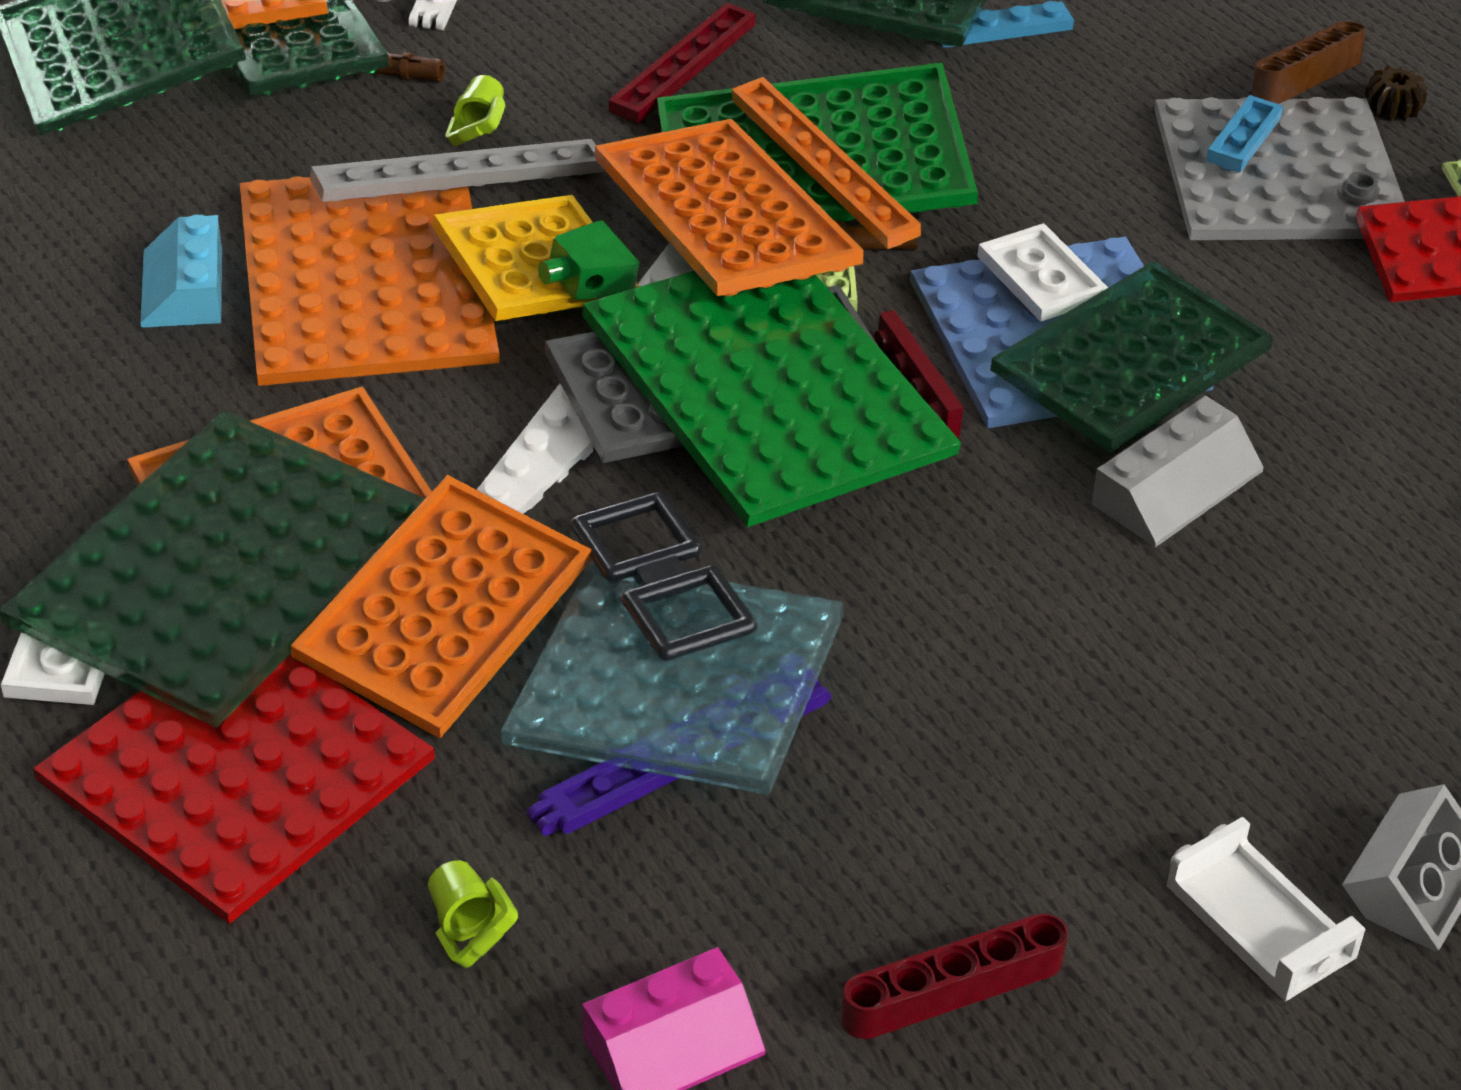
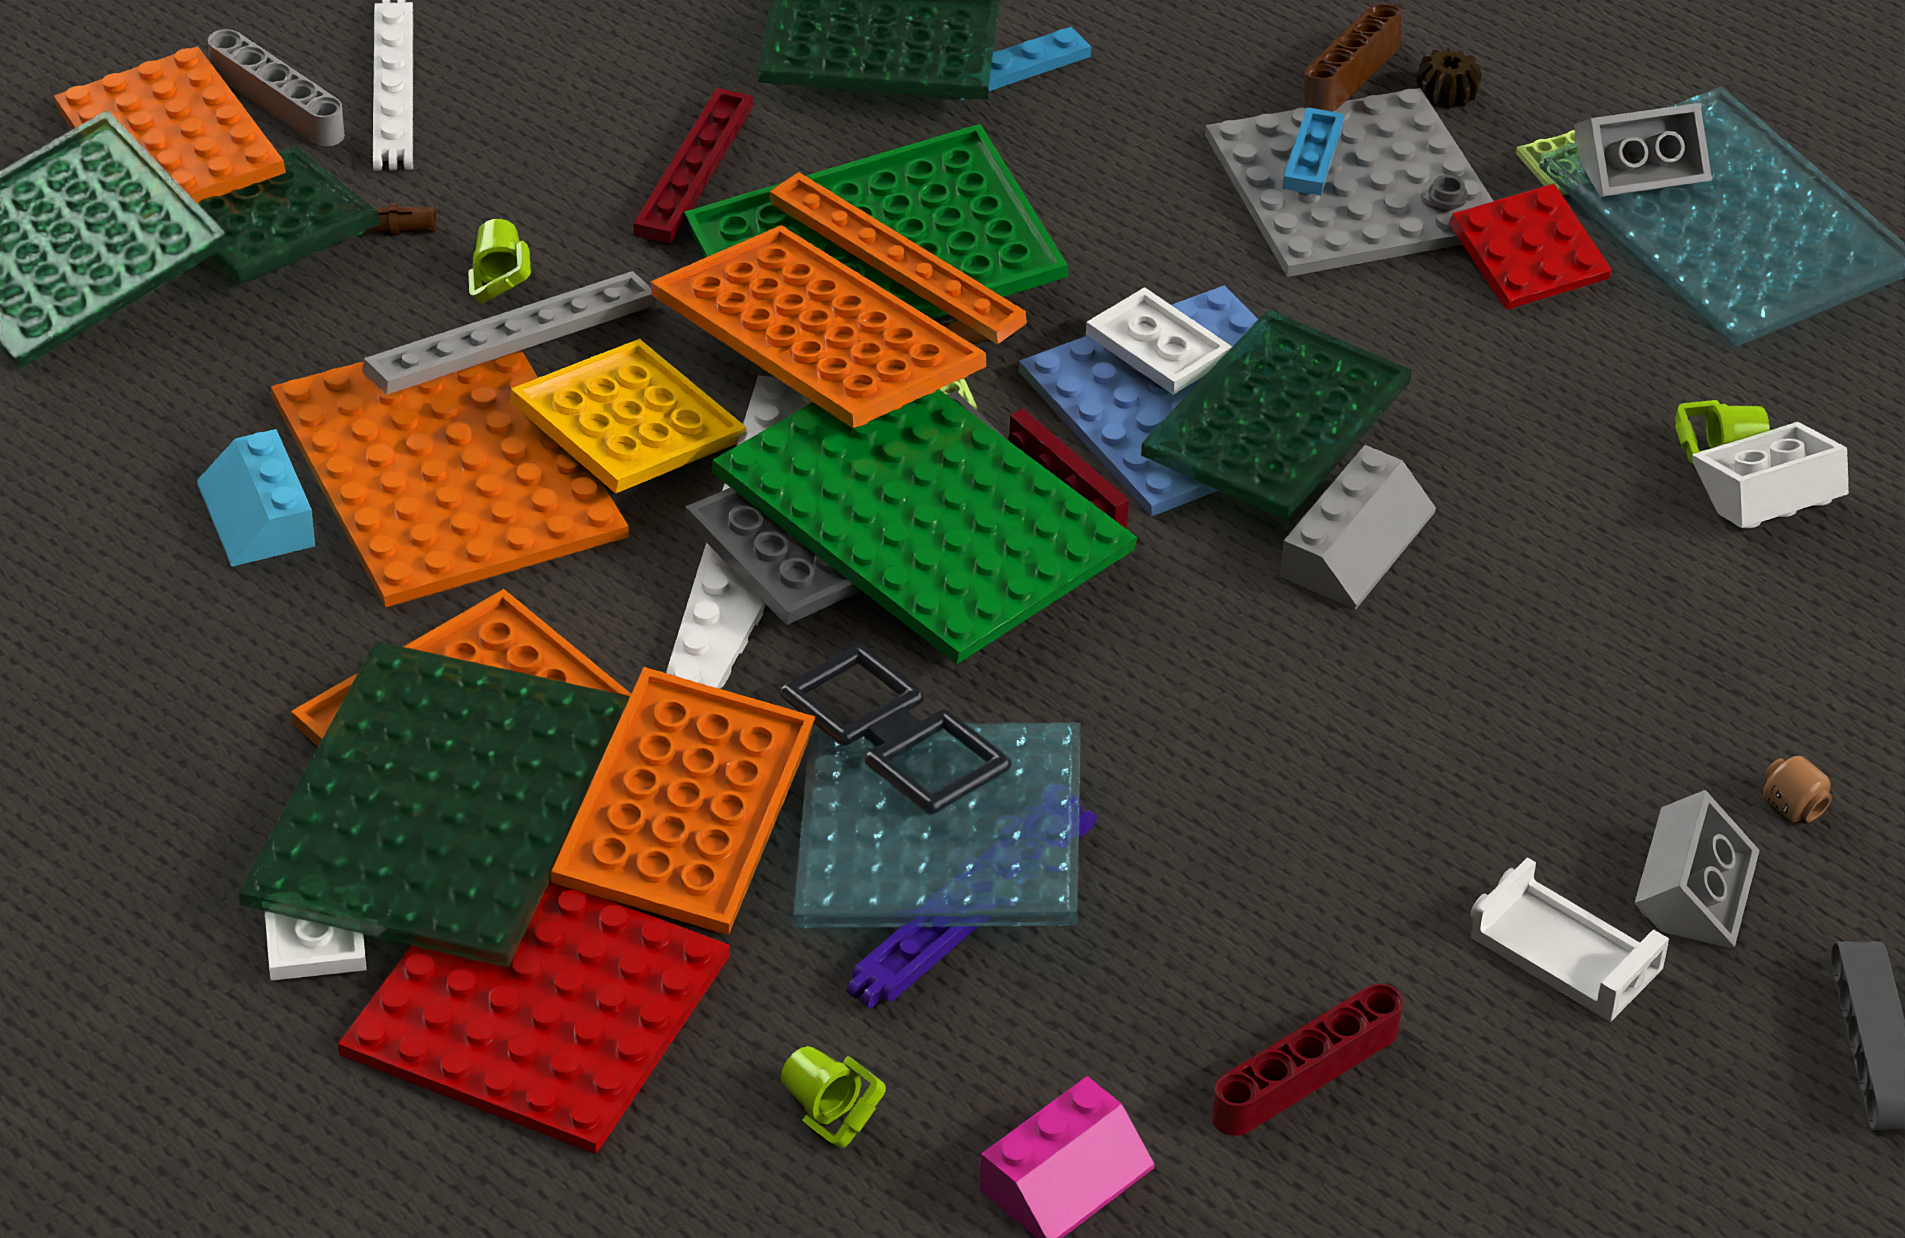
camera: 15 degrees left, 0 degrees up
(590, 263) = (697, 413): green torso -> none

